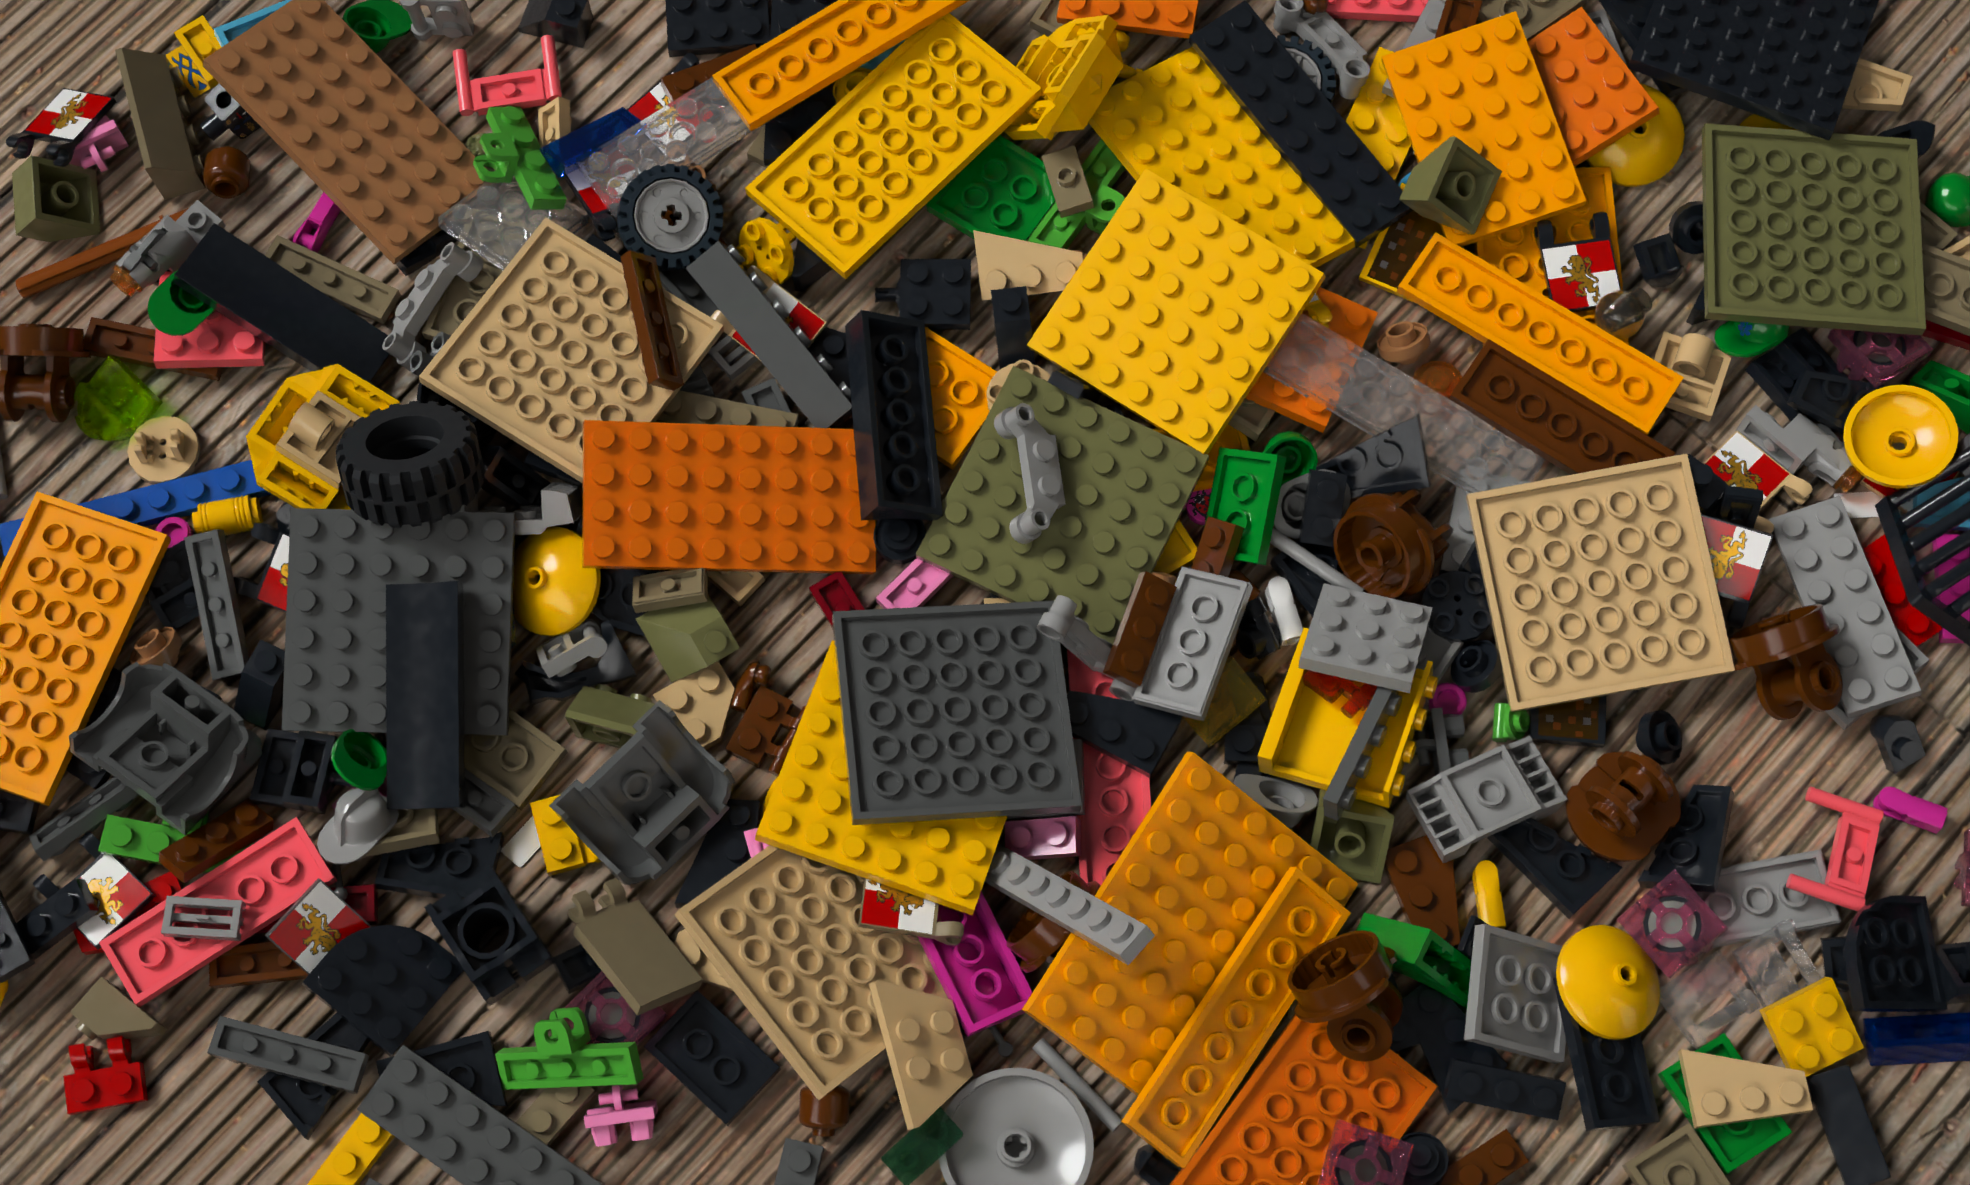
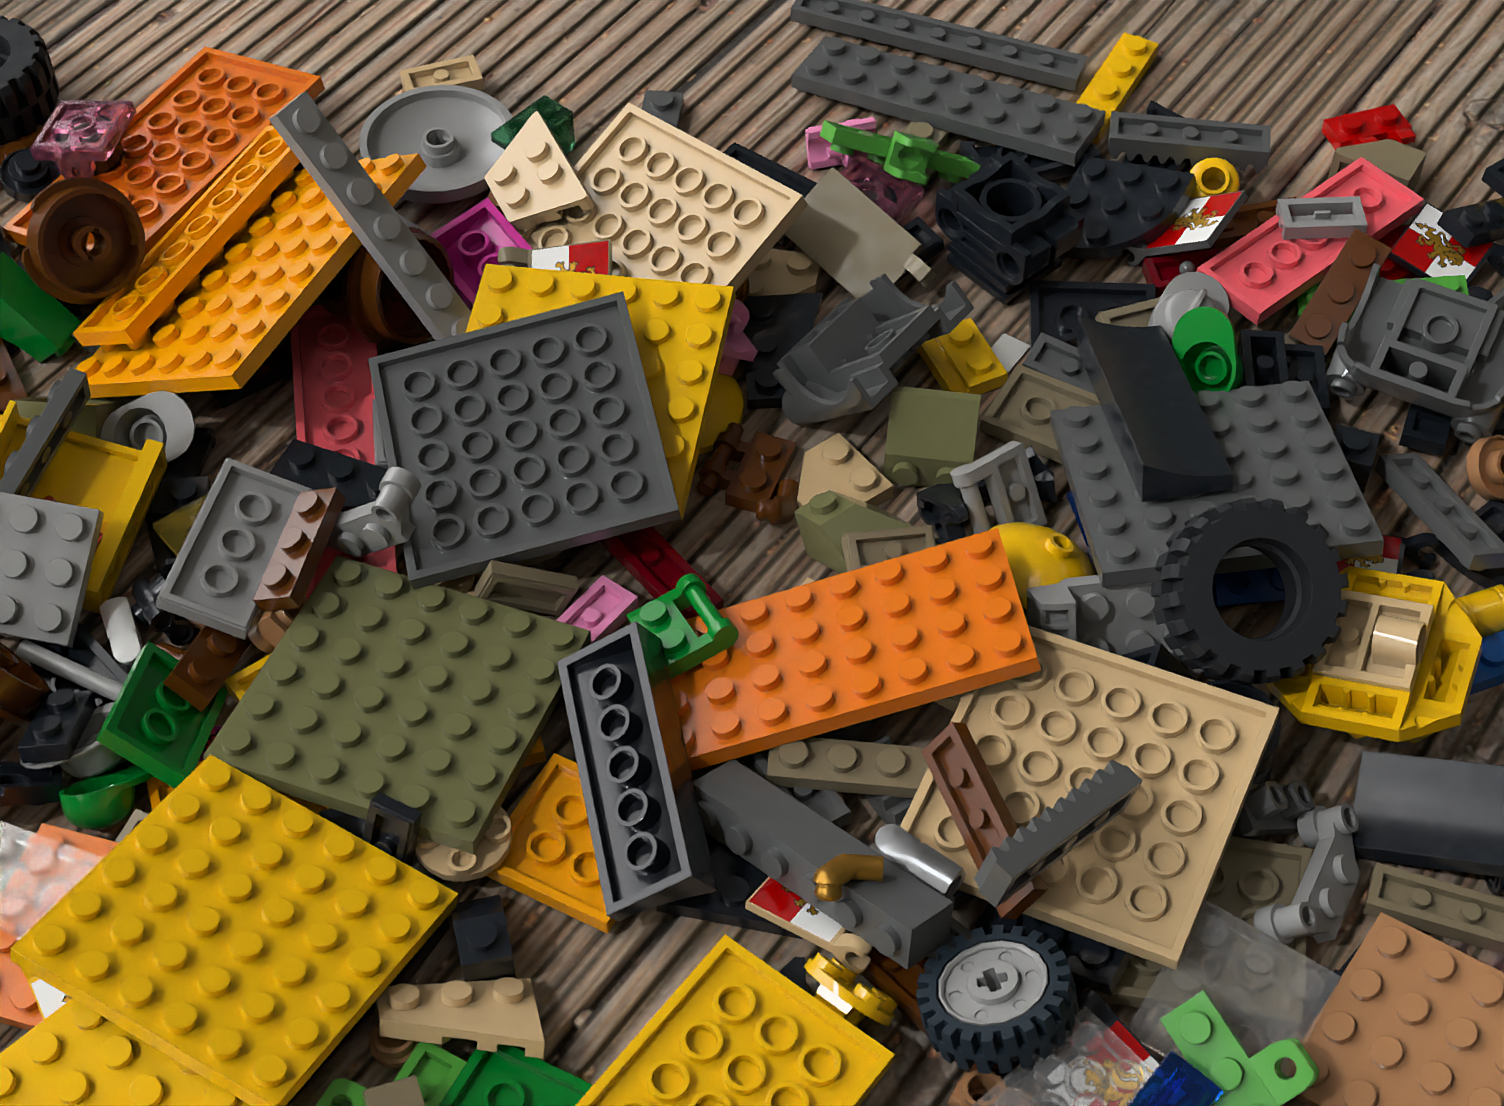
camera: 170 degrees right, 20 degrees down
(283, 1000) = (1214, 177): none -> yellow head
(603, 276) = (1056, 832): none -> dark grey gear
(702, 305) = (920, 859): none -> flat silver bar
(756, 293) = (842, 870): none -> pearl gold arm
(854, 540) = (680, 643): none -> green plate
(933, 292) = (602, 972): black plate -> none
(970, 596) = (526, 588): none -> dark tan tile
(1039, 471) = (429, 698): light grey plate -> none

